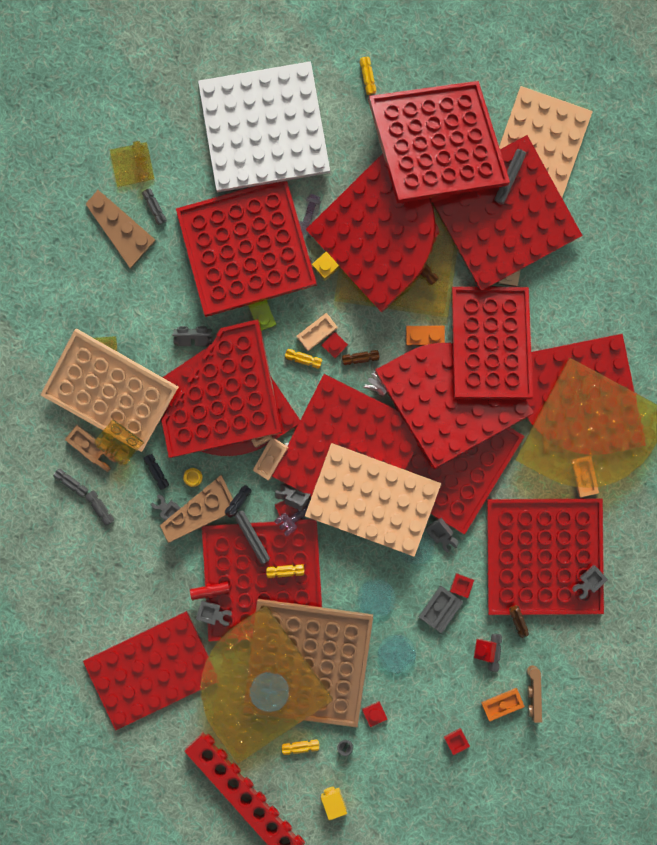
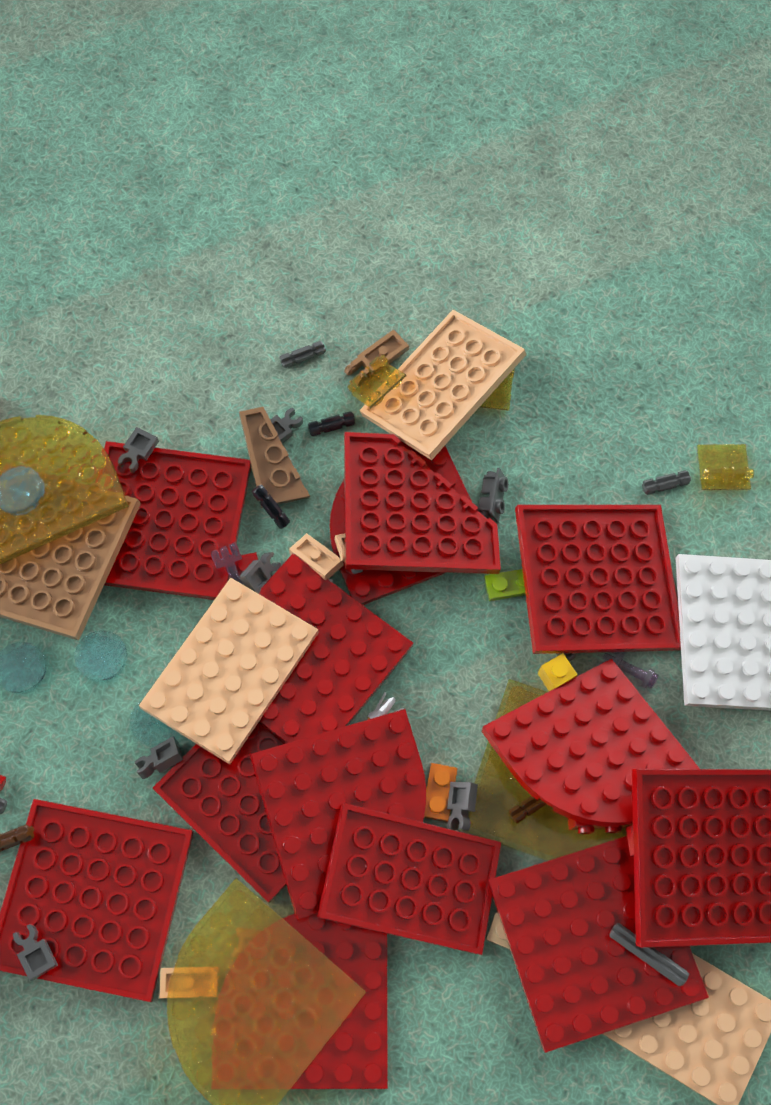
camera: 100 degrees right, 20 degrees down
(70, 482) = (340, 329): dark grey axle -> none
(124, 232) = (639, 441): medium nougat wing -> none
(149, 670) = (93, 371): red plate -> none
(192, 477) = (314, 463): yellow plate -> none
(209, 591) = (167, 451): red pin -> none
(252, 537) = (221, 513): dark grey axle -> none
(285, 571) = (166, 544): yellow axle -> none
(303, 358) = (438, 625): yellow axle -> none
(317, 332) = (470, 648): light nougat plate -> none
(334, 344) = (449, 668): red plate -> none
(360, 357) = (425, 699): reddish brown axle -> none
(431, 317) = (461, 801): none -> dark grey plate
(440, 609) = (61, 736): dark grey plate -> none
(461, 585) = (84, 771): red plate -> none

